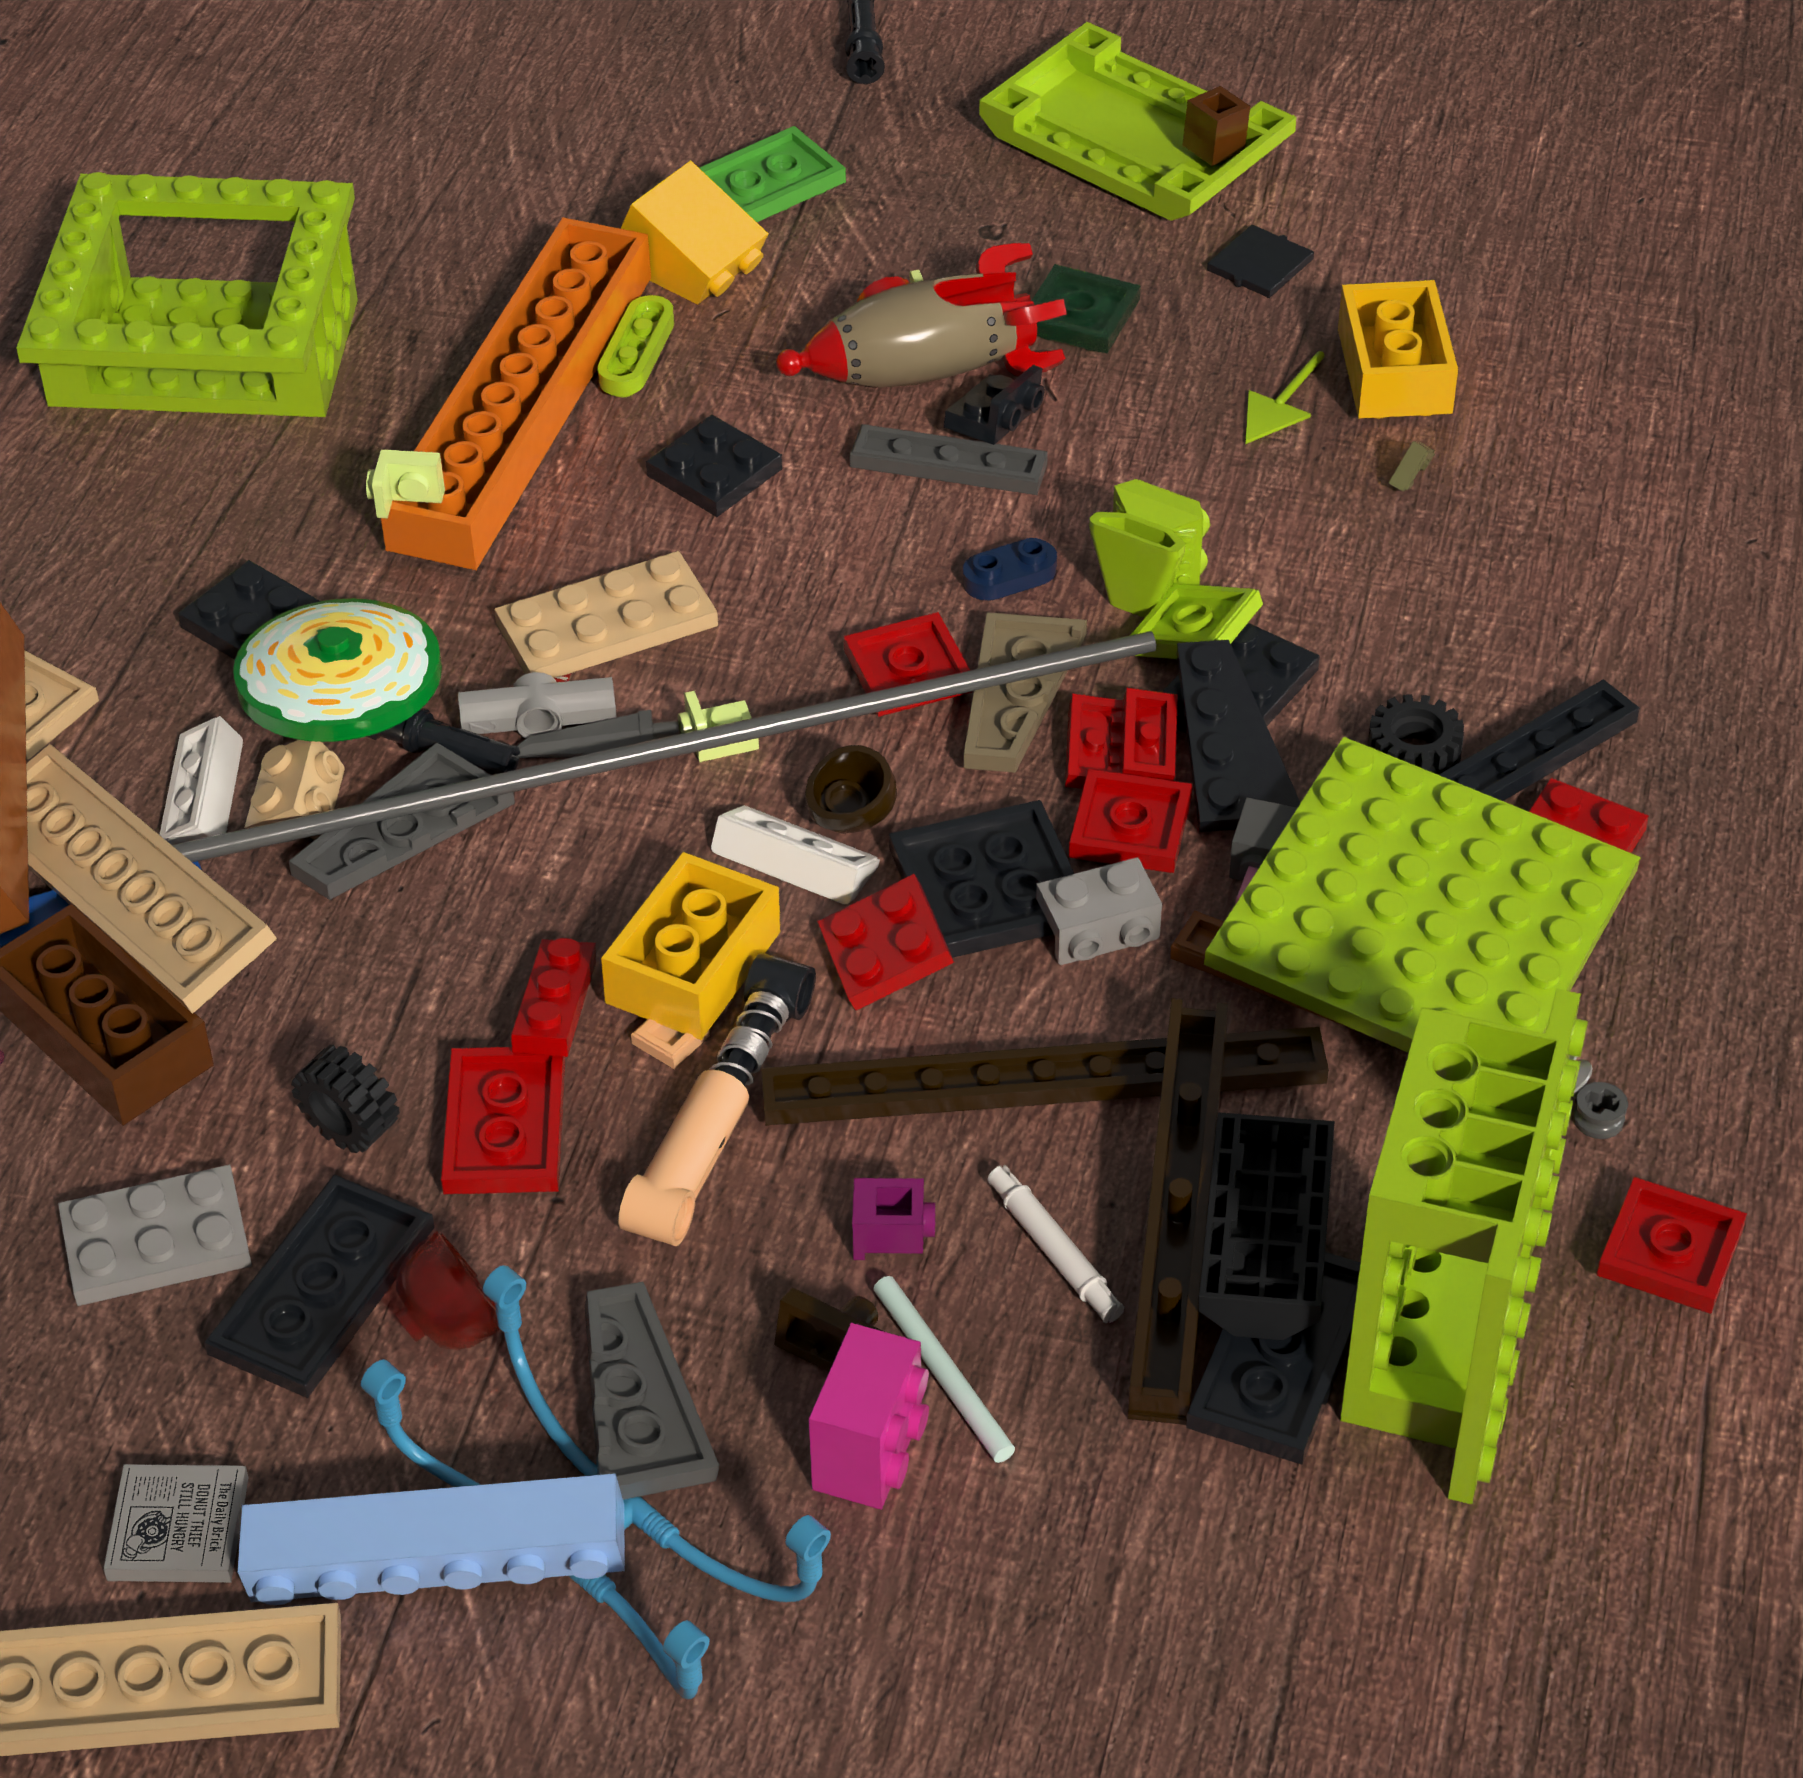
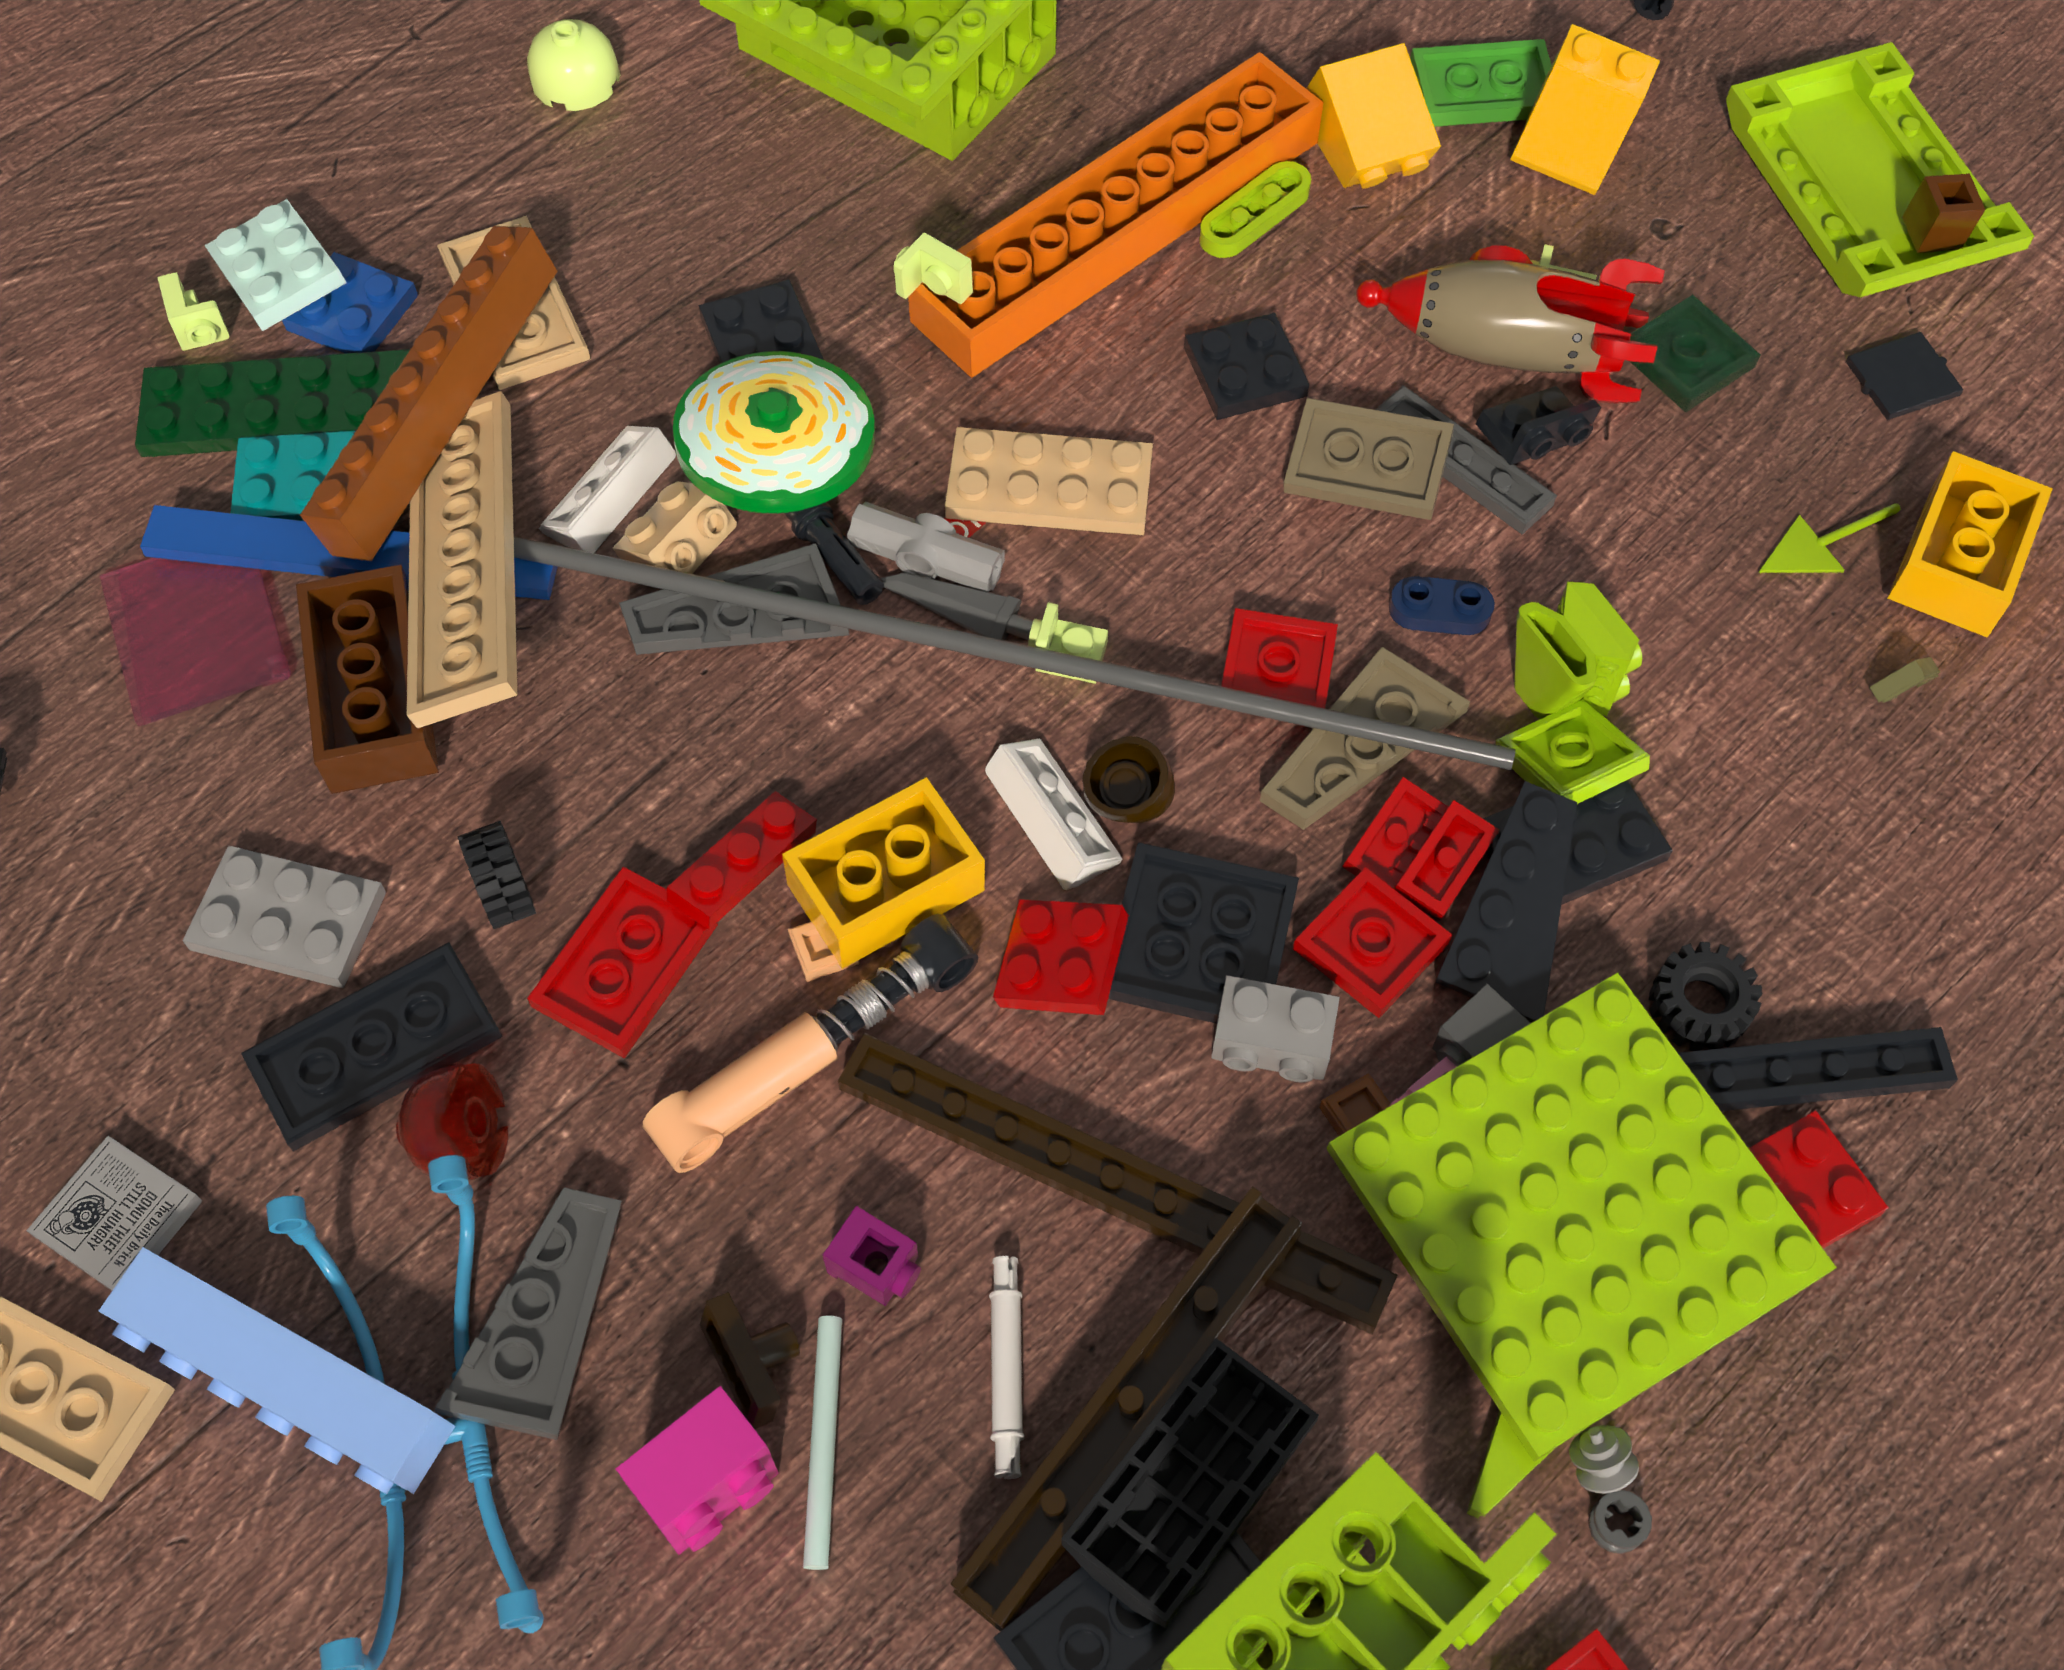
camera: 30 degrees right, 15 degrees up
(874, 157) = (1584, 109): none -> yellow slope
(874, 485) = (1368, 458): none -> dark tan plate

